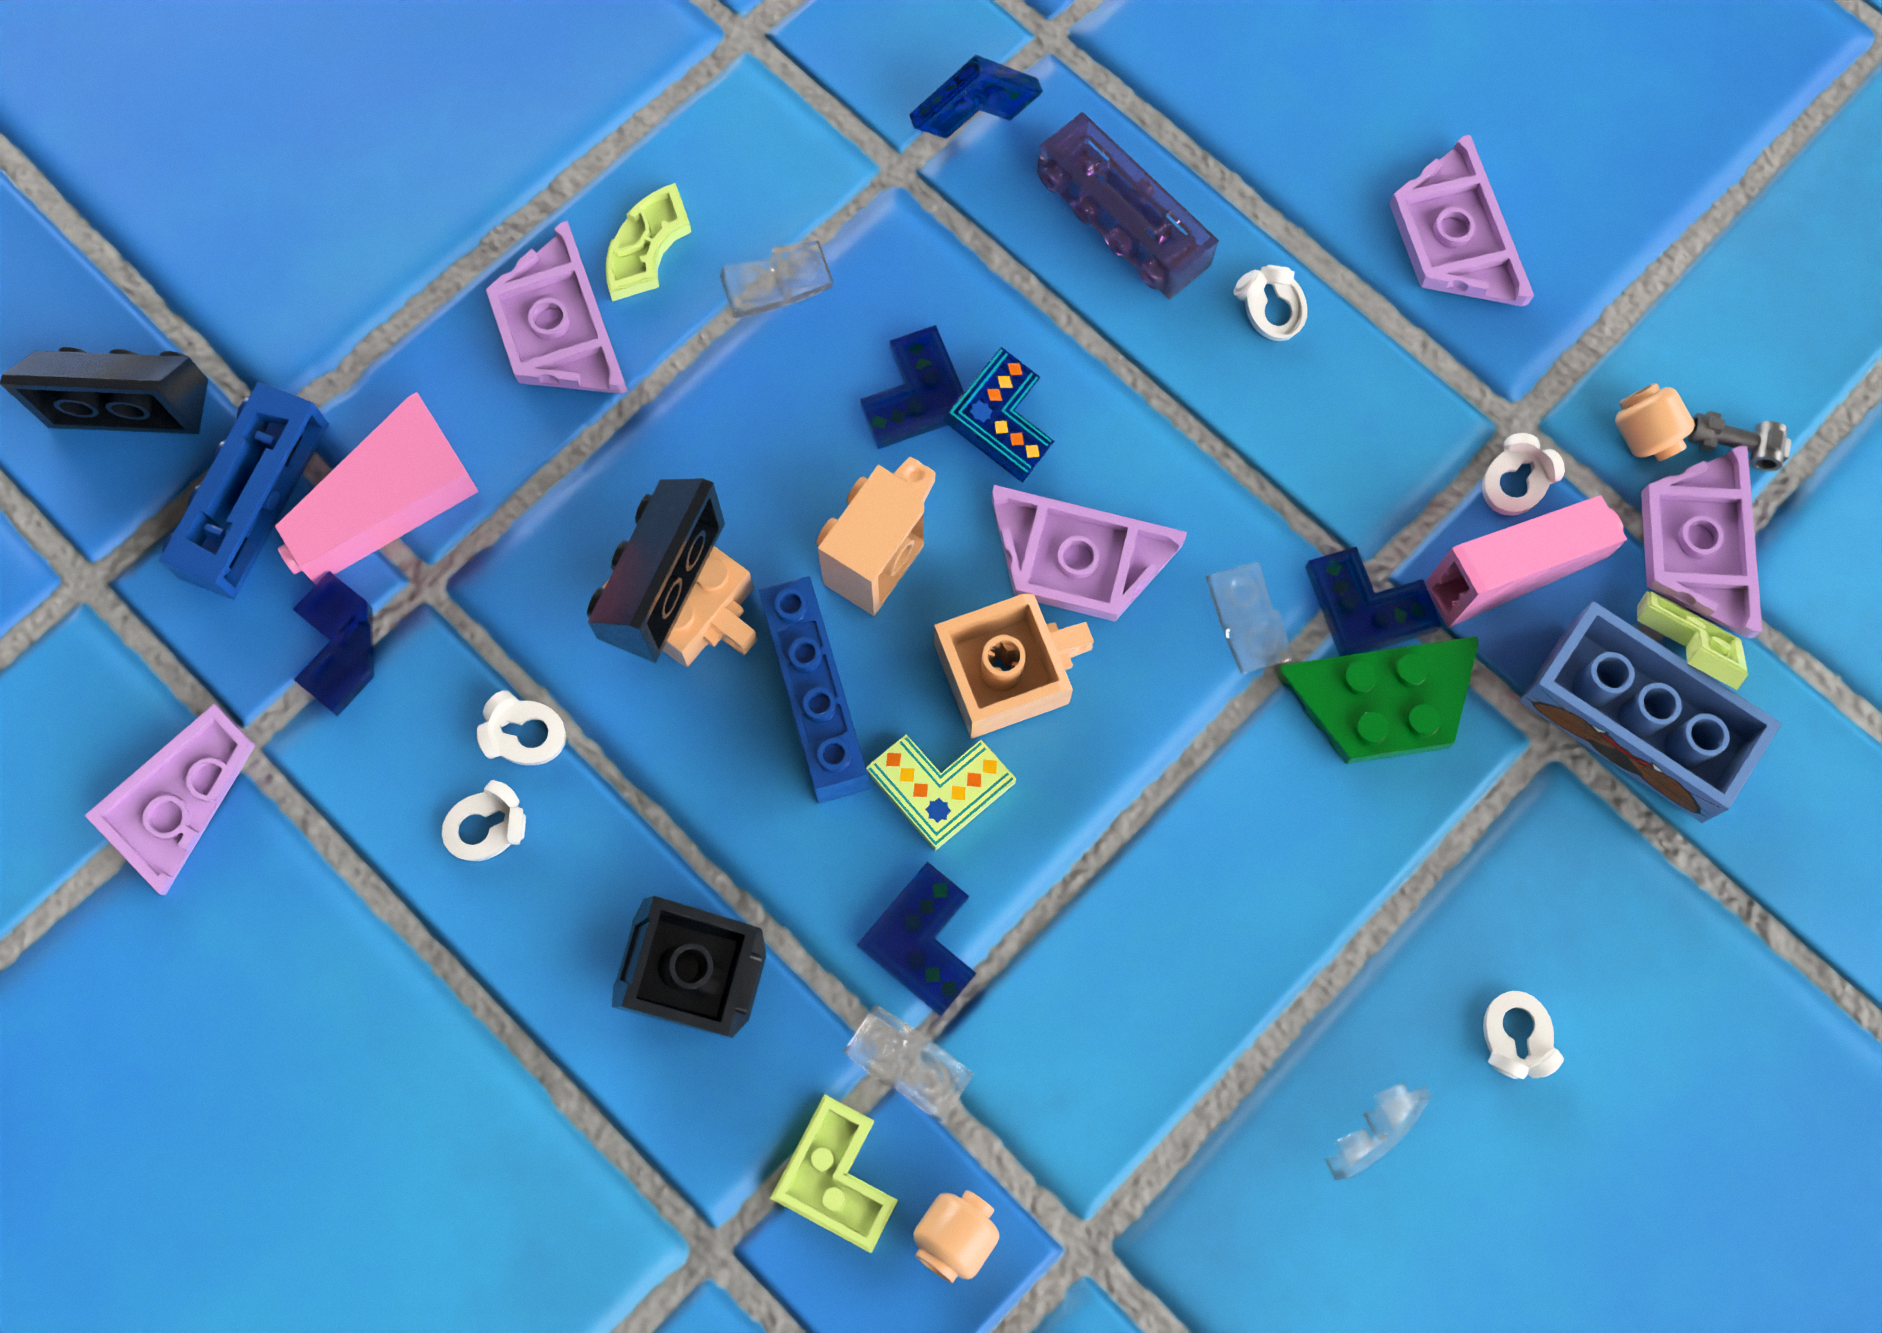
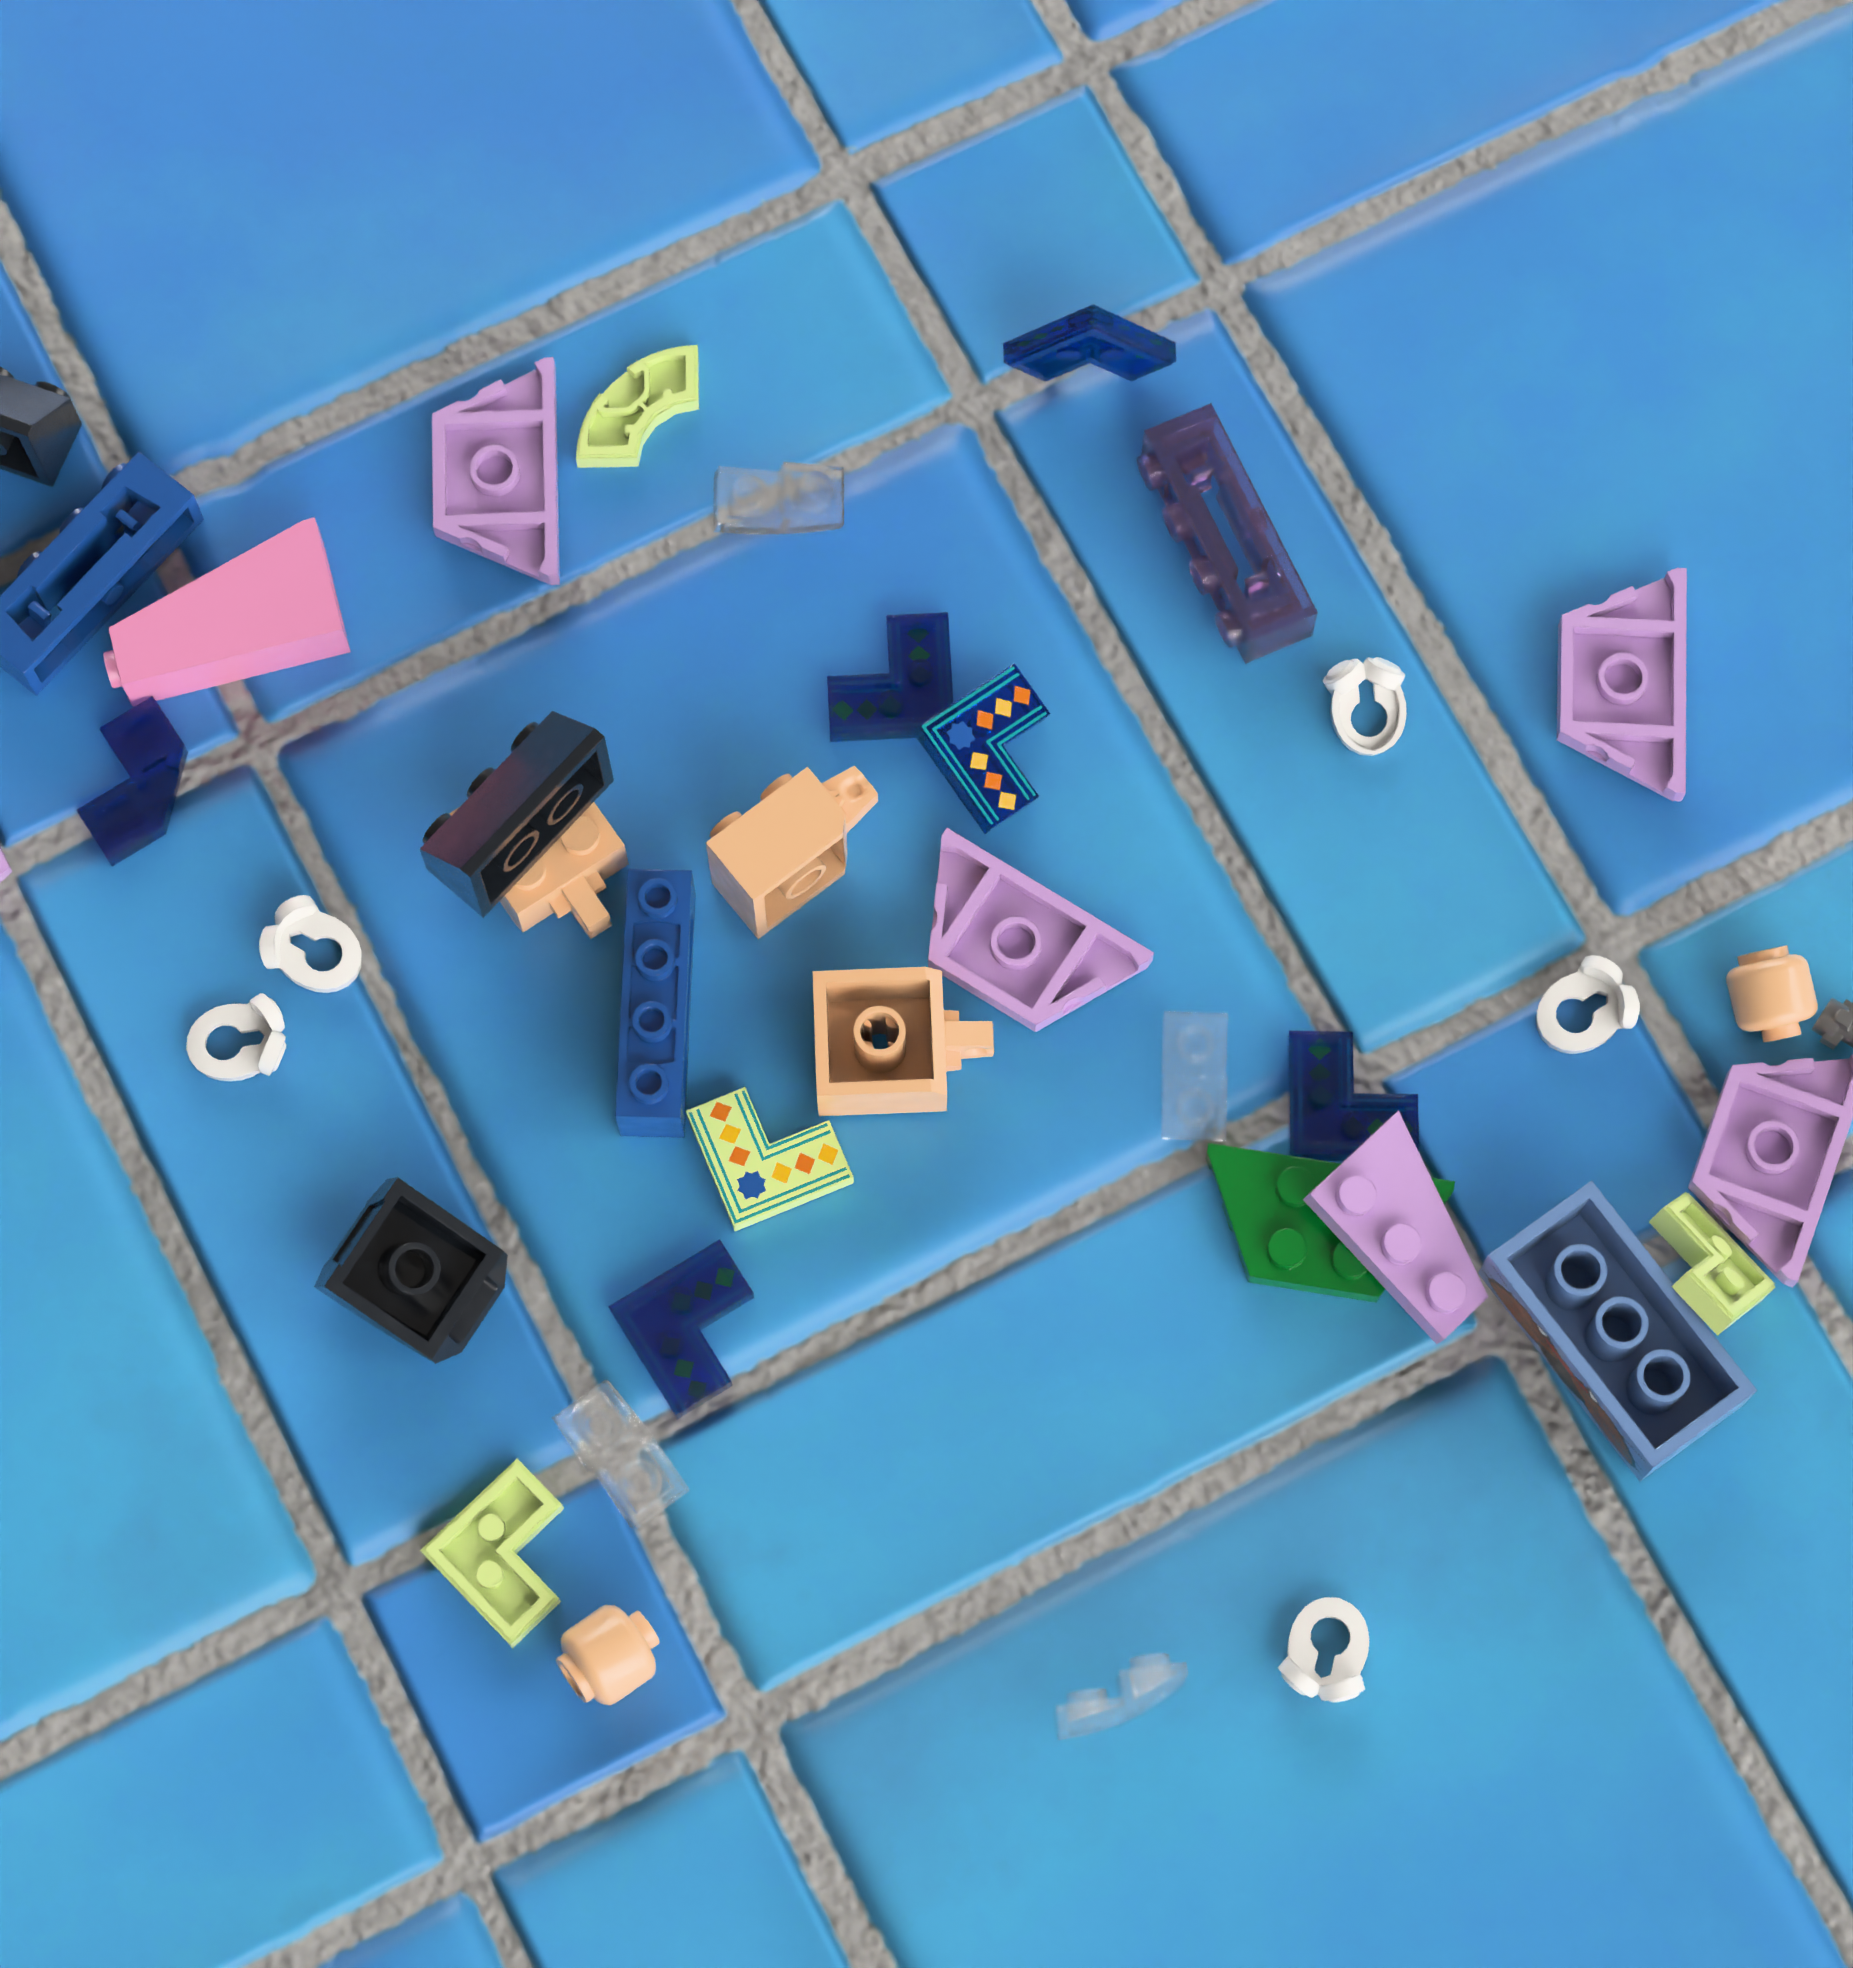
camera: 20 degrees right, 0 degrees up
(1455, 686) = (1400, 1230): none -> lavender wing
(1522, 559) = (1544, 1106): bright pink slope -> none

